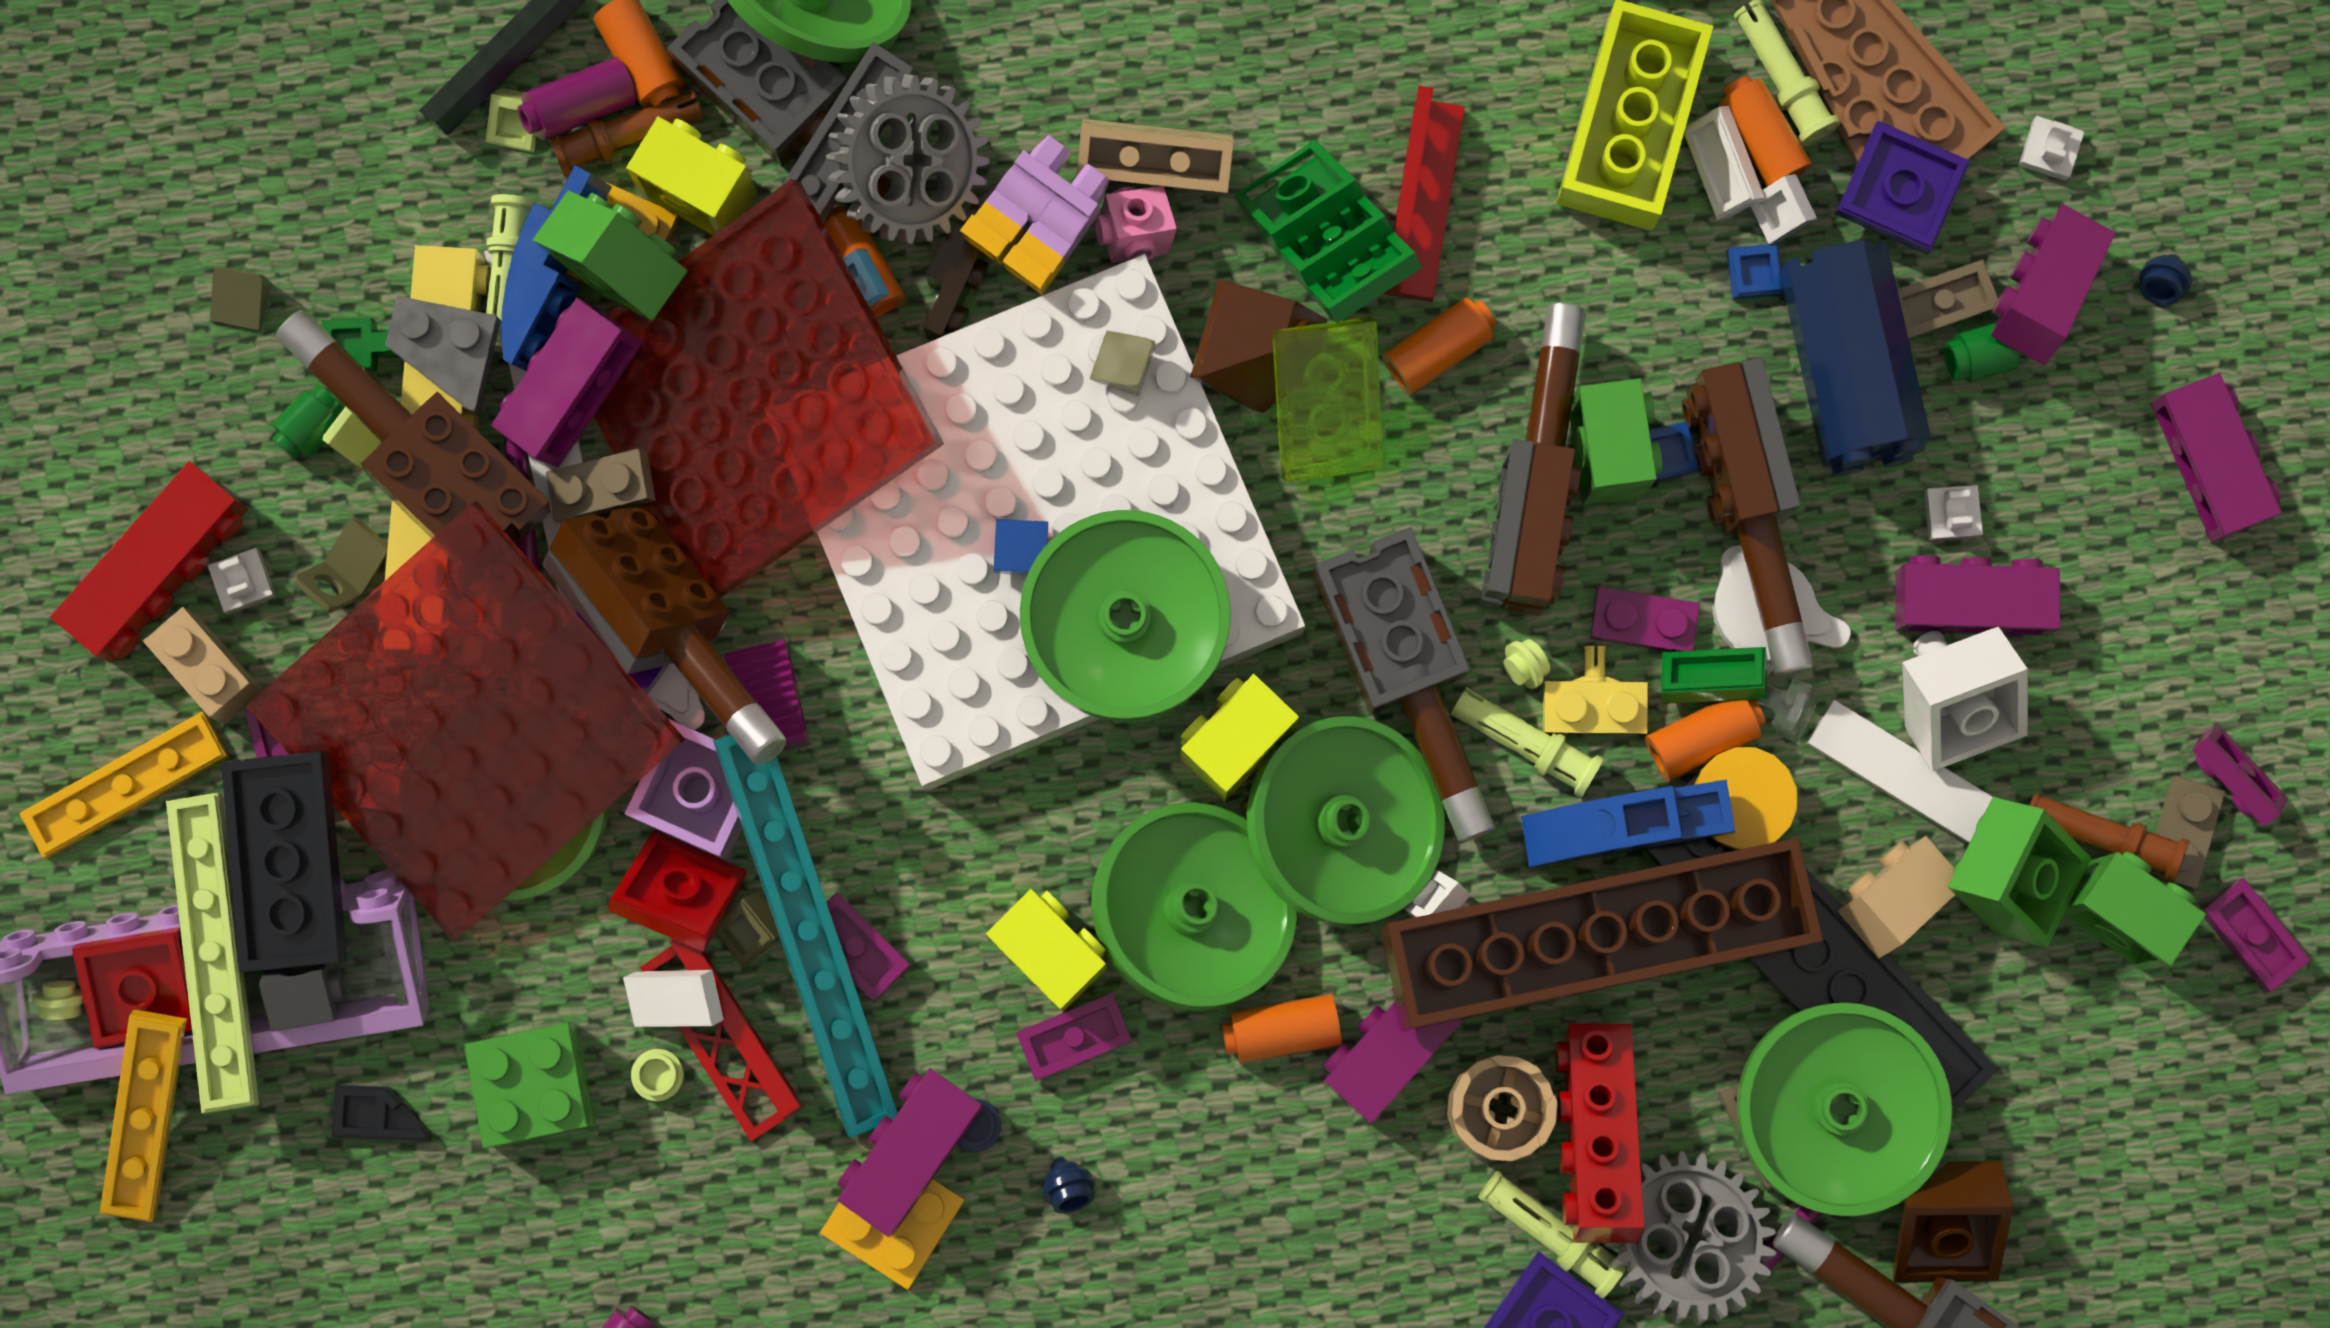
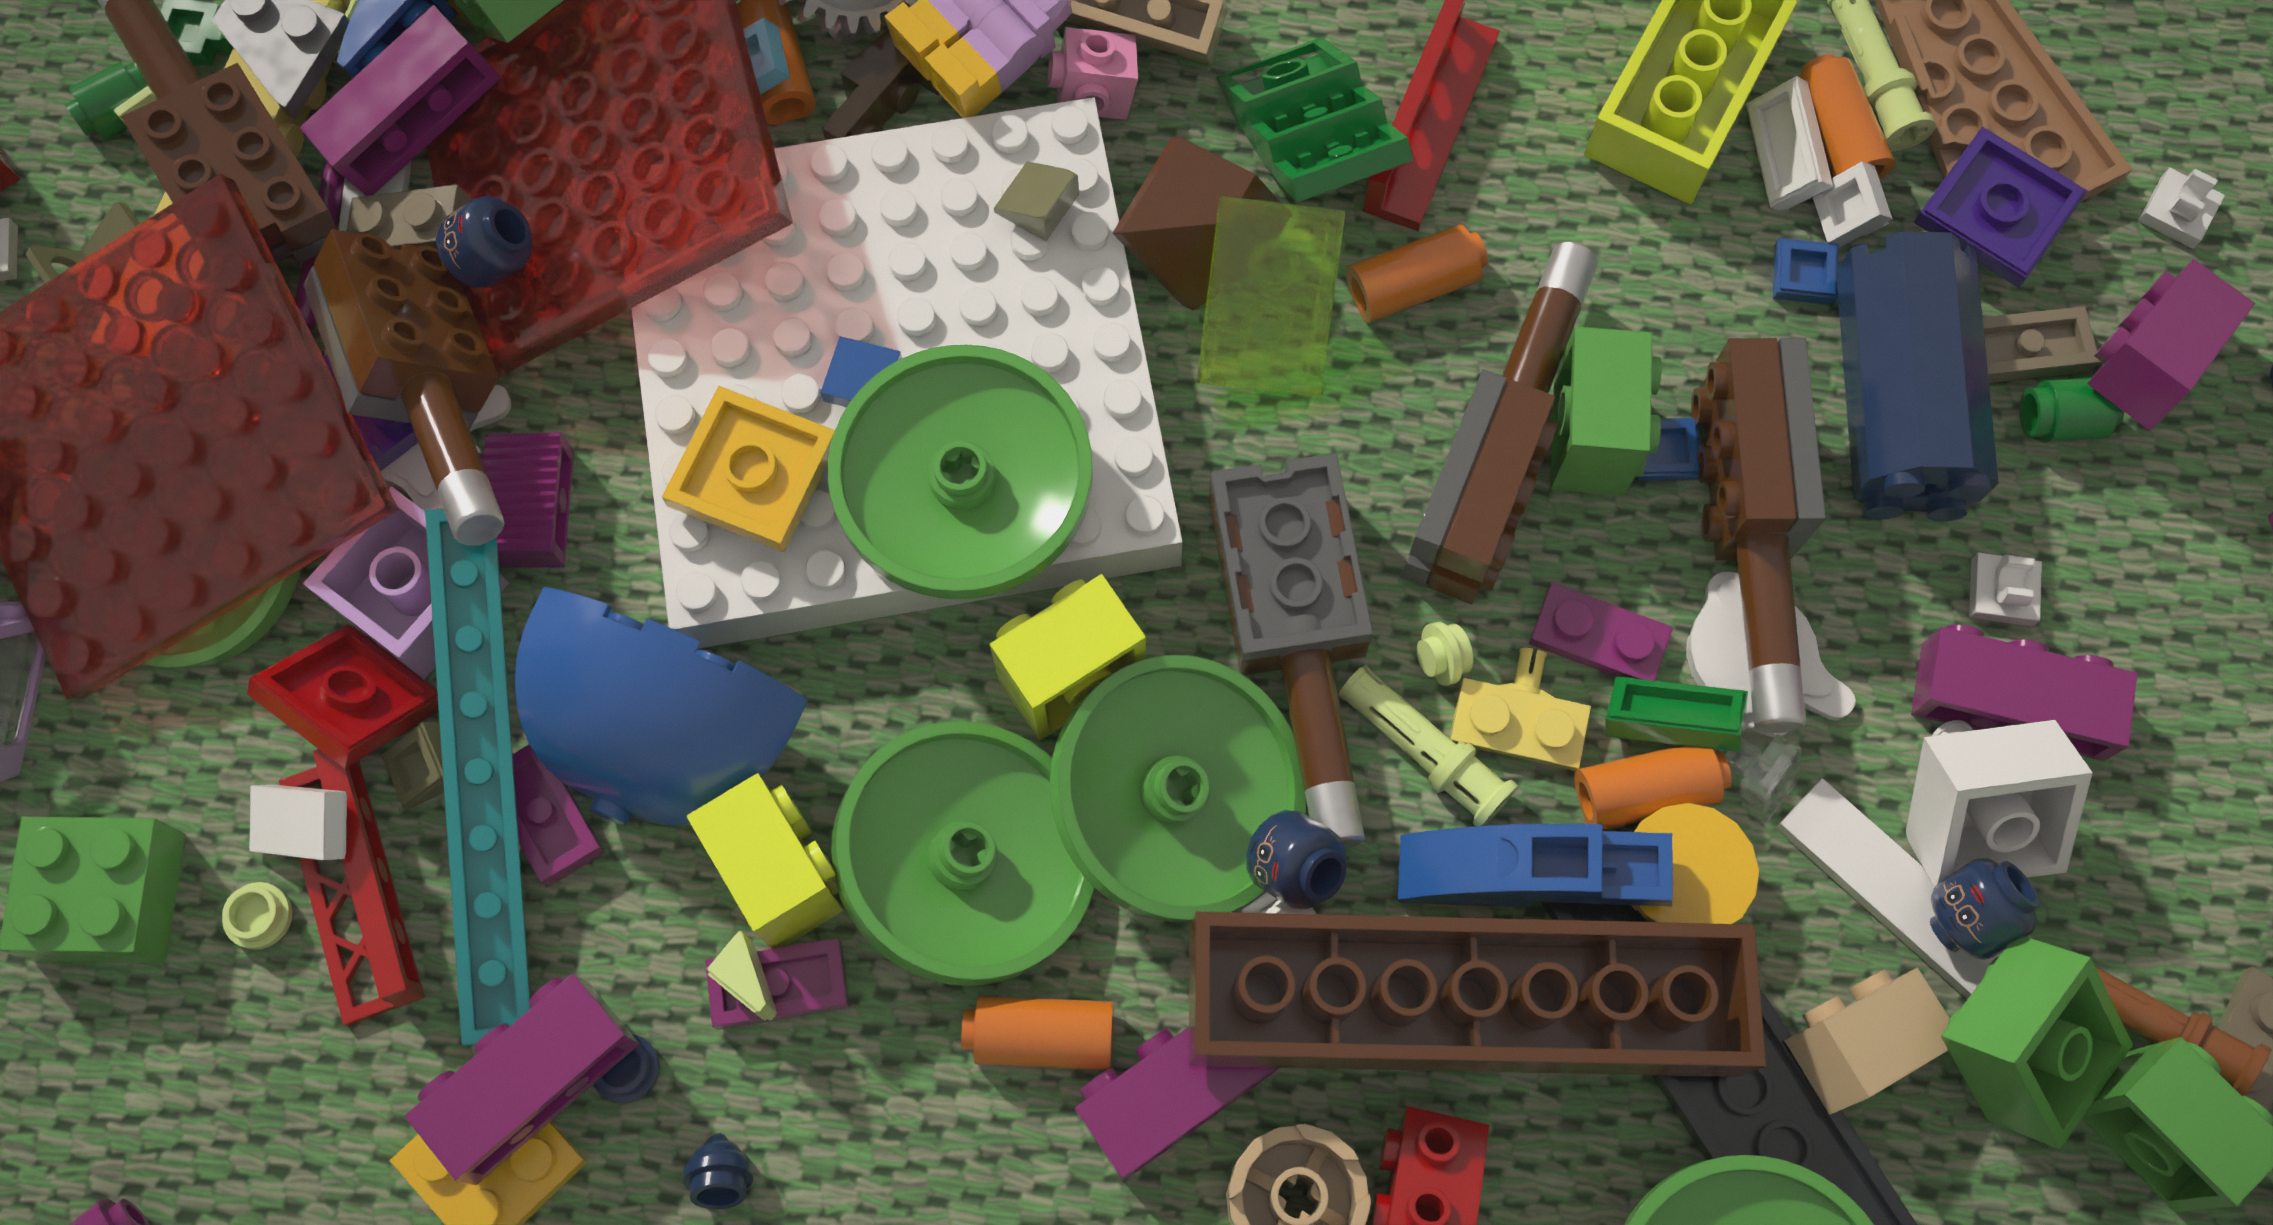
camera: 15 degrees right, 10 degrees down
(684, 499) = (484, 242): none -> dark blue head
(929, 860) = (642, 712): none -> blue brick
(955, 645) = (750, 468): none -> yellow plate
(1053, 1042) = (742, 975): none -> yellowish green slope
(1448, 859) = (1296, 859): none -> dark blue head
(1967, 780) = (1983, 908): none -> dark blue head

